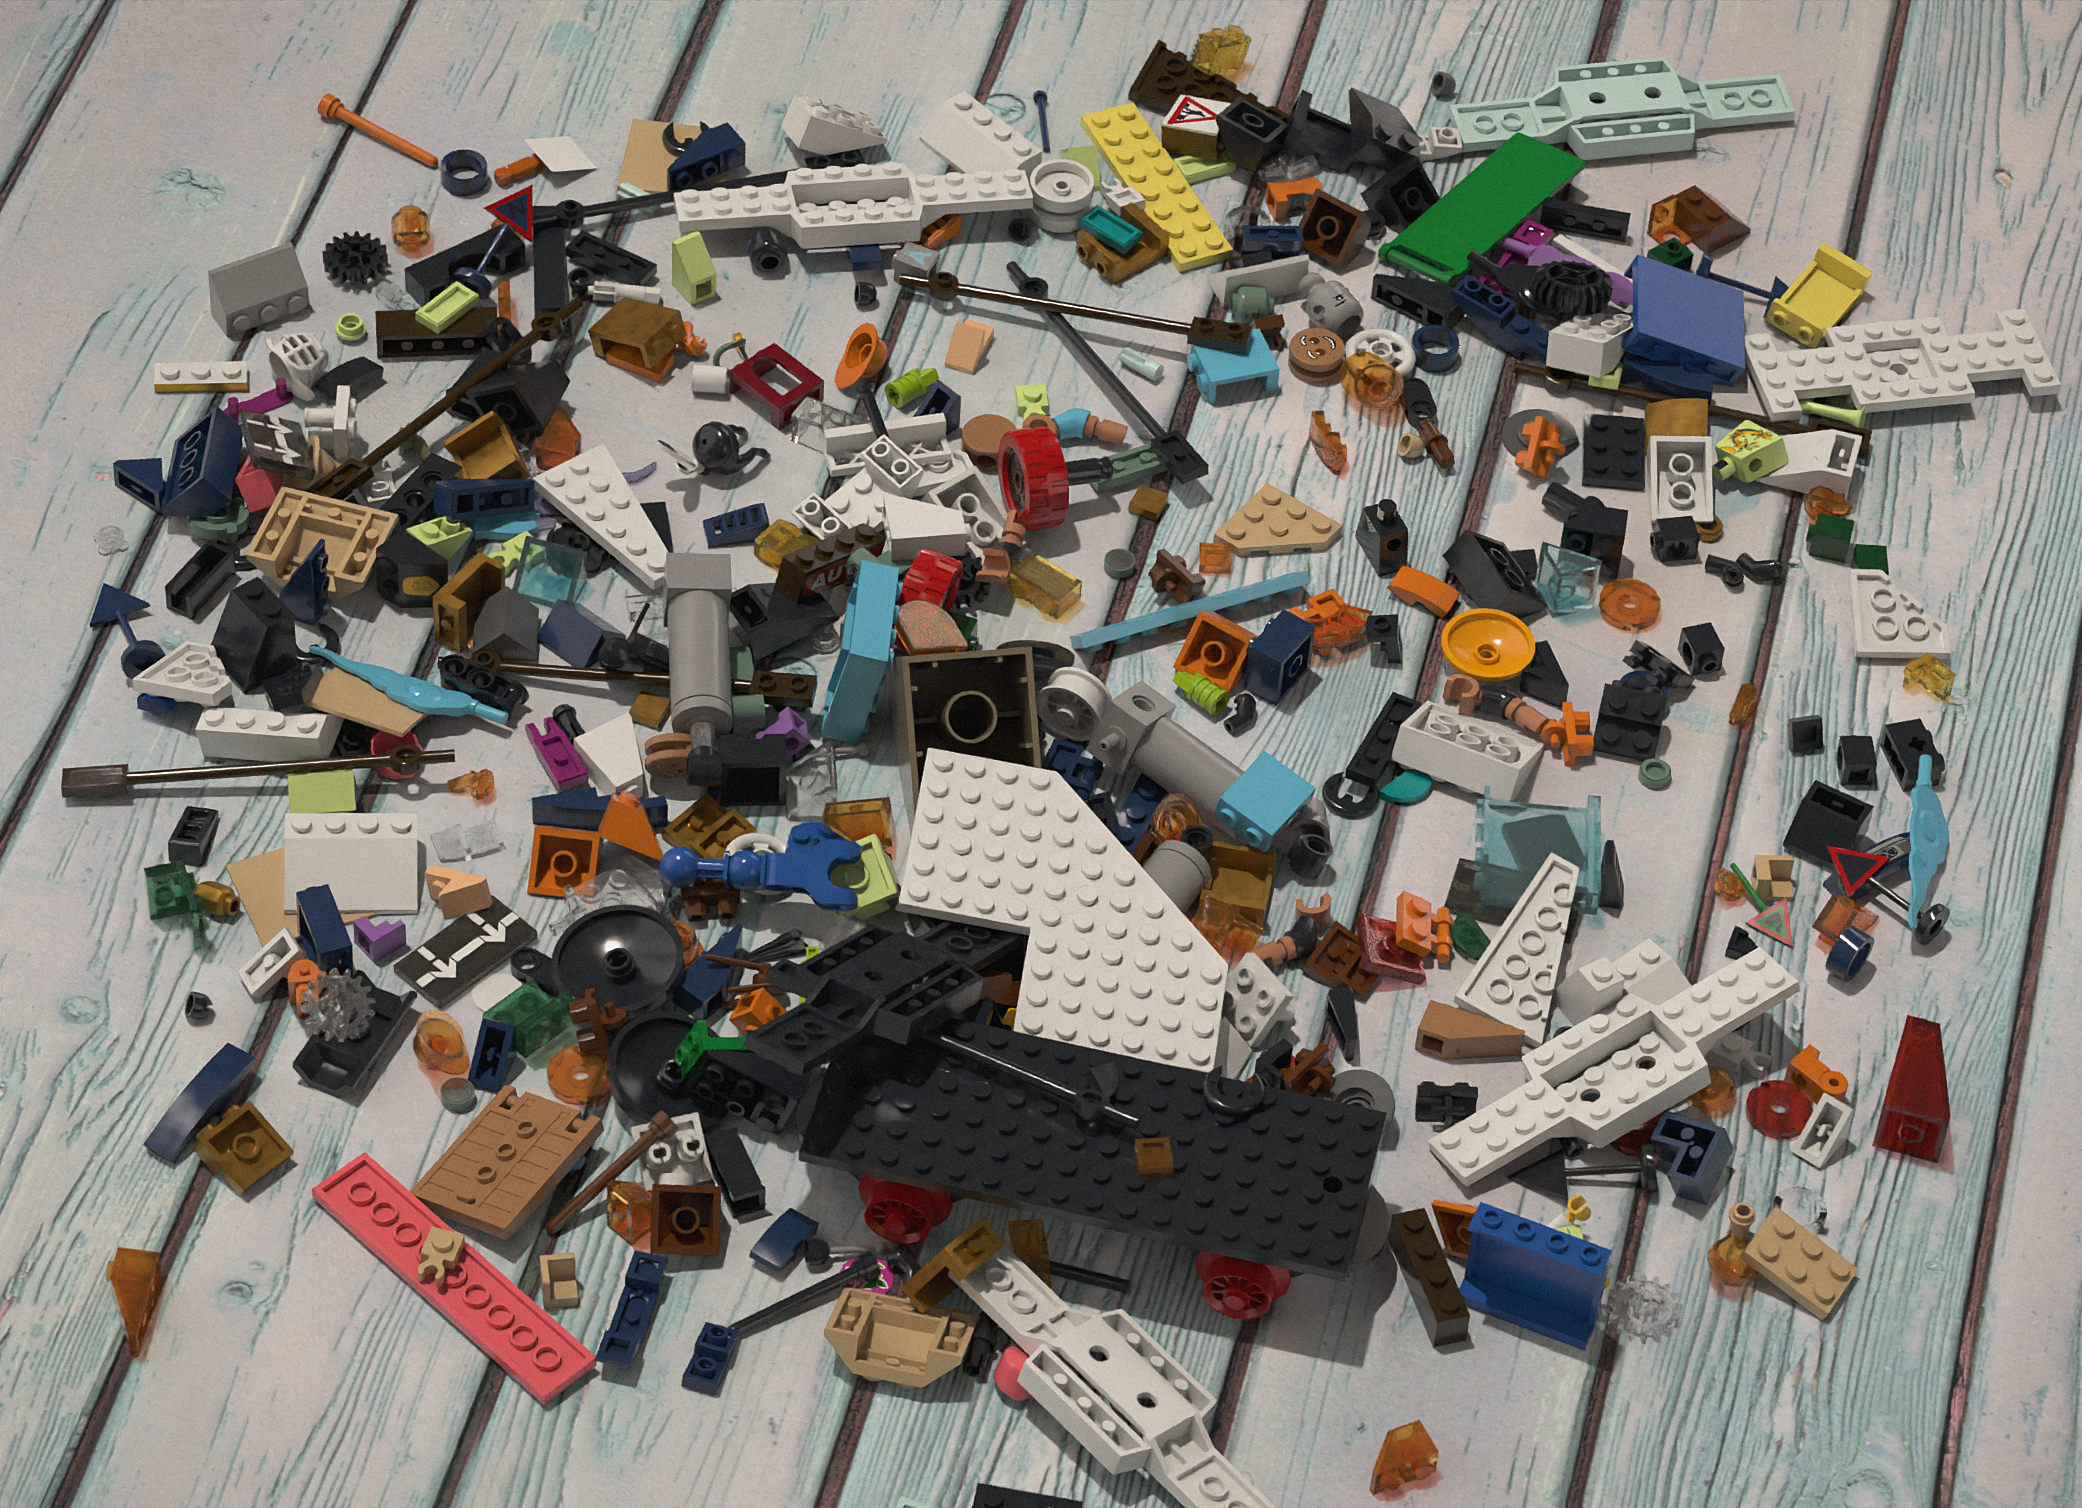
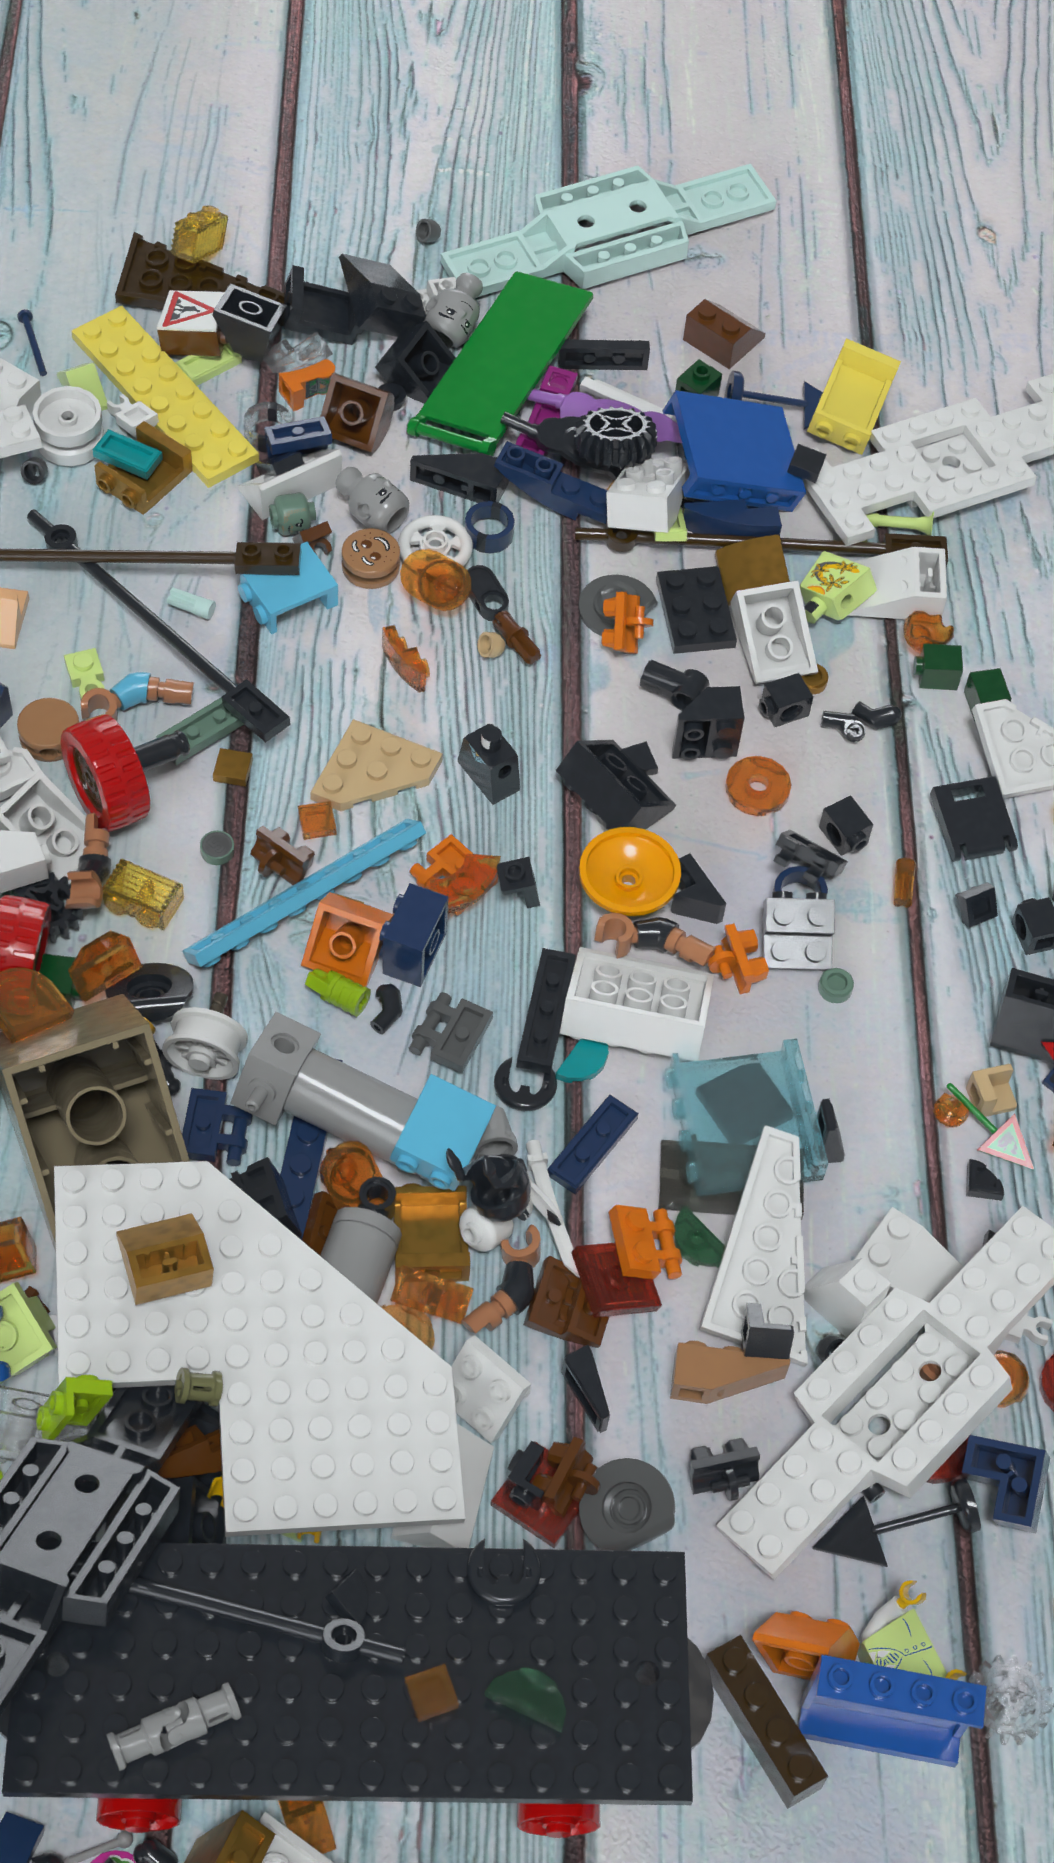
camera: 15 degrees left, 10 degrees up
(912, 914) = (73, 1403): none -> lime bracket
(948, 1129) = (197, 1718): none -> light grey piece
(1000, 628) = (103, 964): none -> clear orange slope
(1007, 828) = (165, 1258): none -> pearl gold slope
(1013, 928) = (210, 1393): none -> olive bush
(1089, 1277) = (375, 1816): black bar -> none
(1231, 1170) = (530, 1694): none -> clear green plate
(1285, 885) = (483, 1233): none -> white head
(1302, 744) = (459, 1038): none -> dark grey plate
(1307, 852) = (503, 1189): none -> black hair
(1344, 856) = (537, 1164): none -> white sword
(1397, 850) = (592, 1144): none -> dark blue tile
(1416, 585) = (540, 811): orange slope -> none
(1450, 157) = (455, 310): none -> light grey piece
(1507, 1007) = (764, 1339): none -> black panel
(1566, 579) = (690, 775): clear light blue slope -> none
(1662, 221) = (679, 343): clear orange bracket -> none
(1751, 342) = (806, 463): none -> black tile
(1822, 668) = (974, 823): none -> black container

